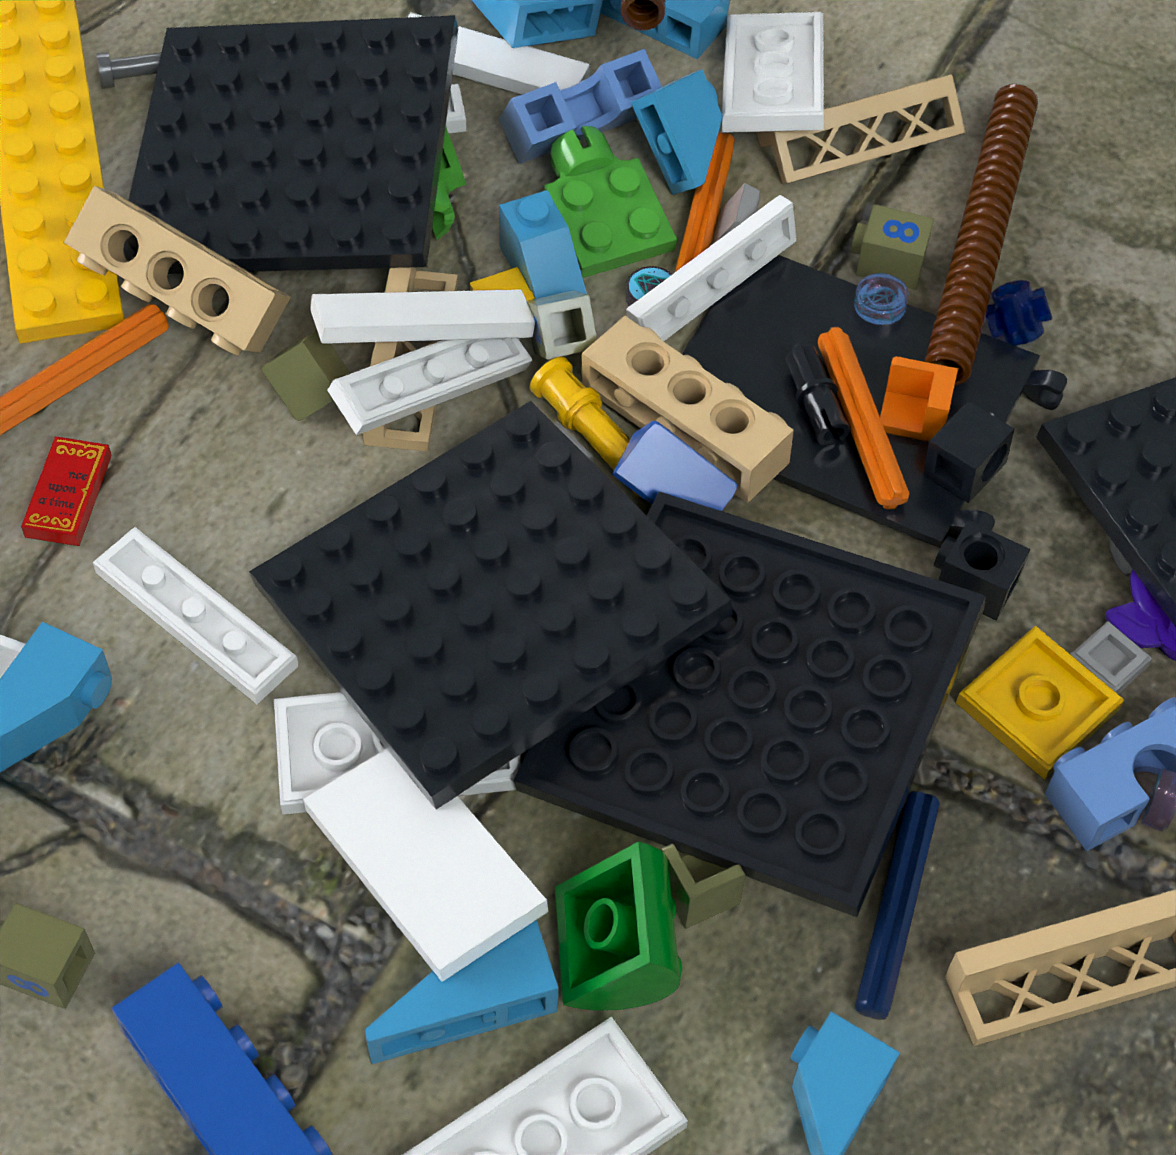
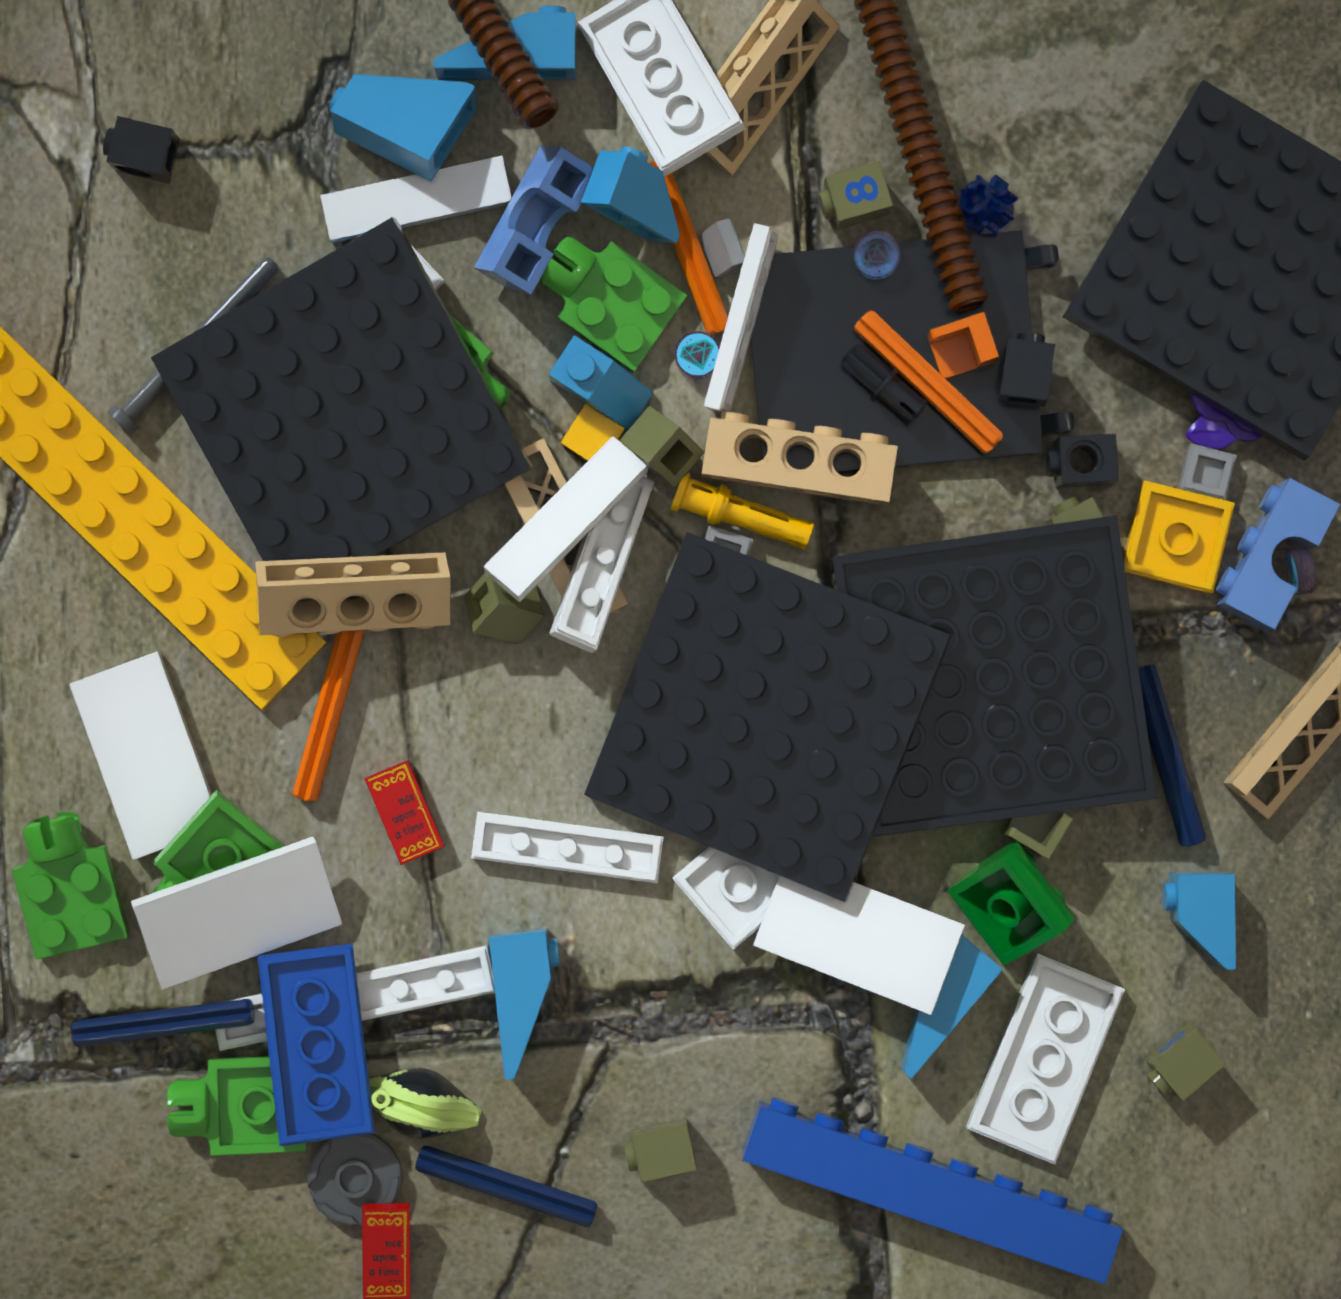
camera: 30 degrees left, 30 degrees up
(664, 463) = (830, 532): slope -> none

